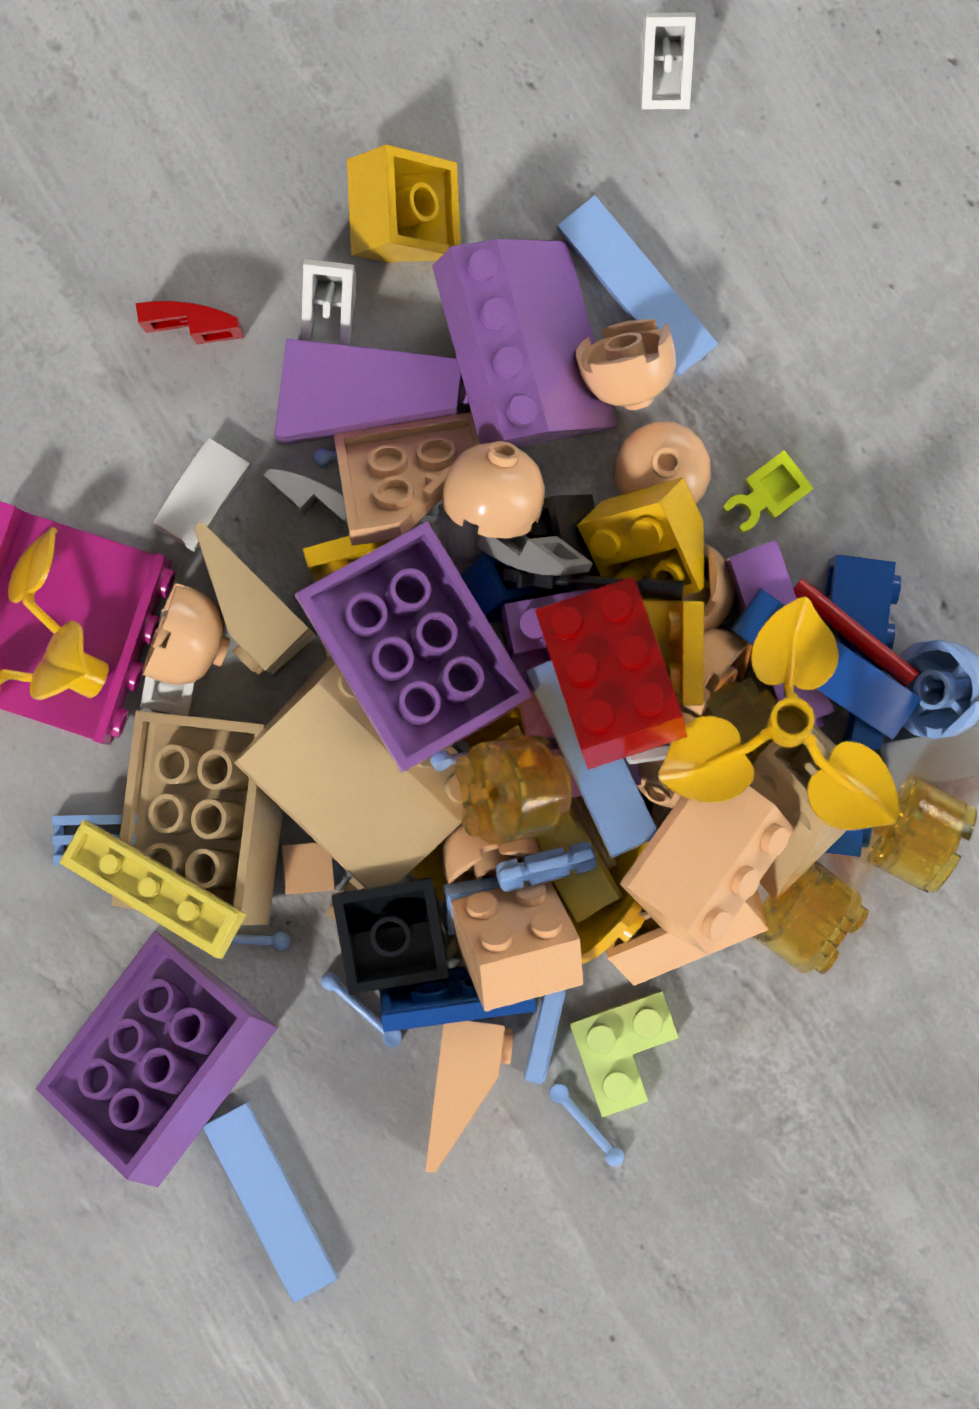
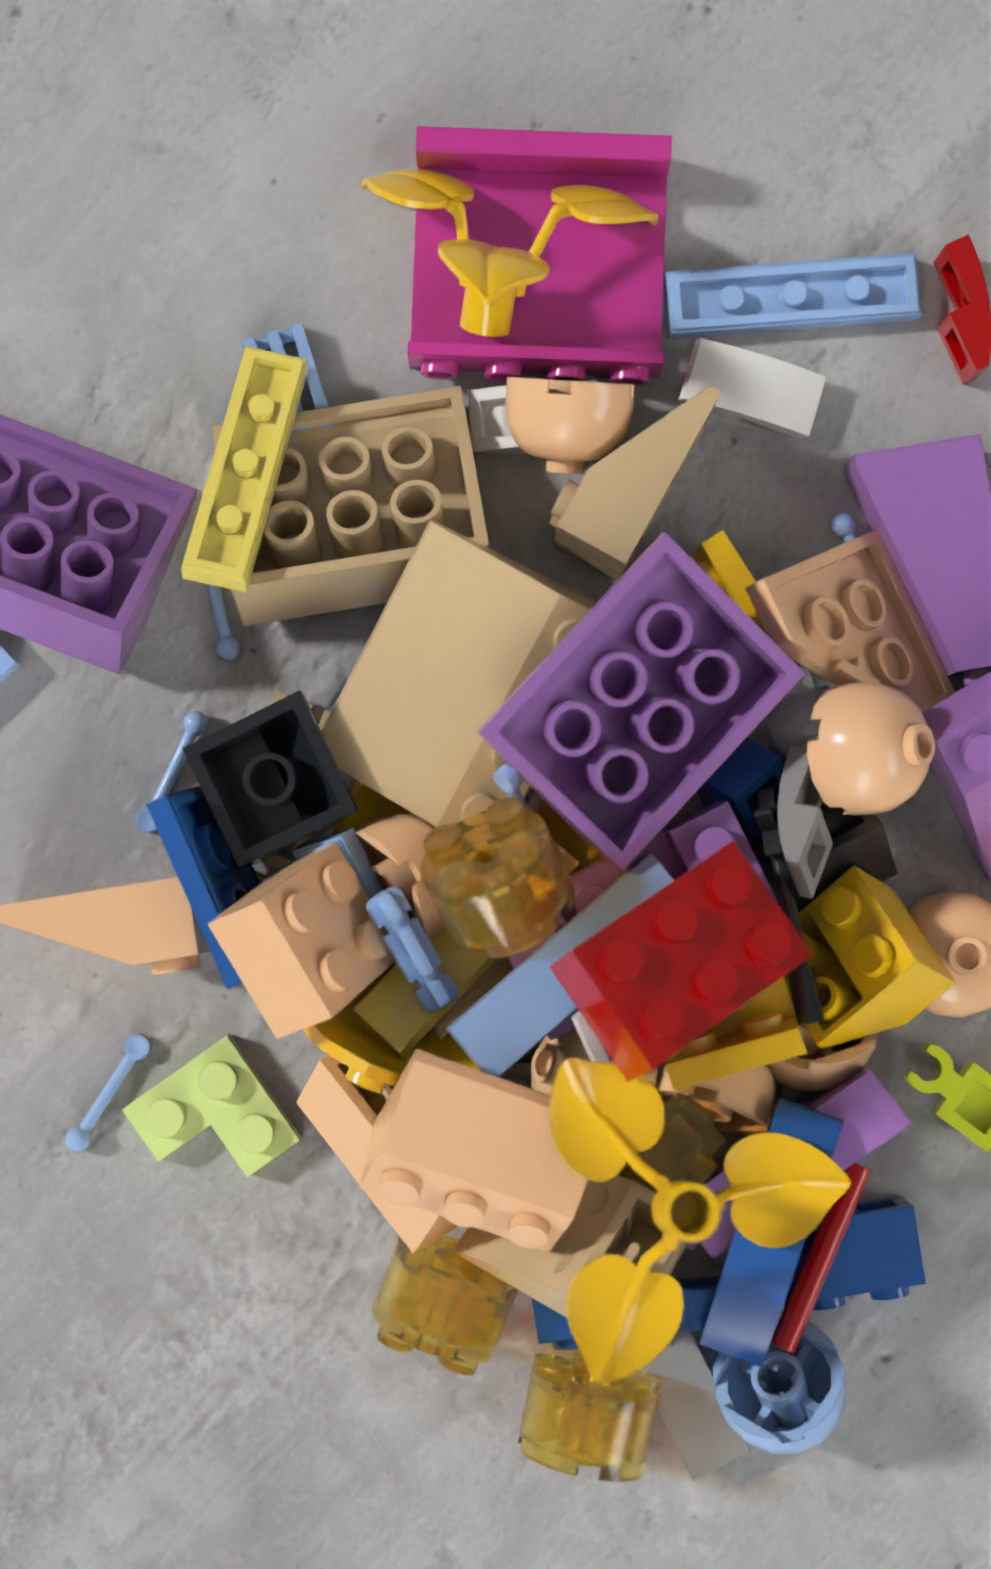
camera: 80 degrees right, 0 degrees up
(140, 444) = (793, 295): none -> light blue tile
(306, 492) = (793, 515): light grey slope -> none
(307, 868) = (325, 654): light nougat tile -> none
(544, 1037) = (198, 1008): light blue tile -> none

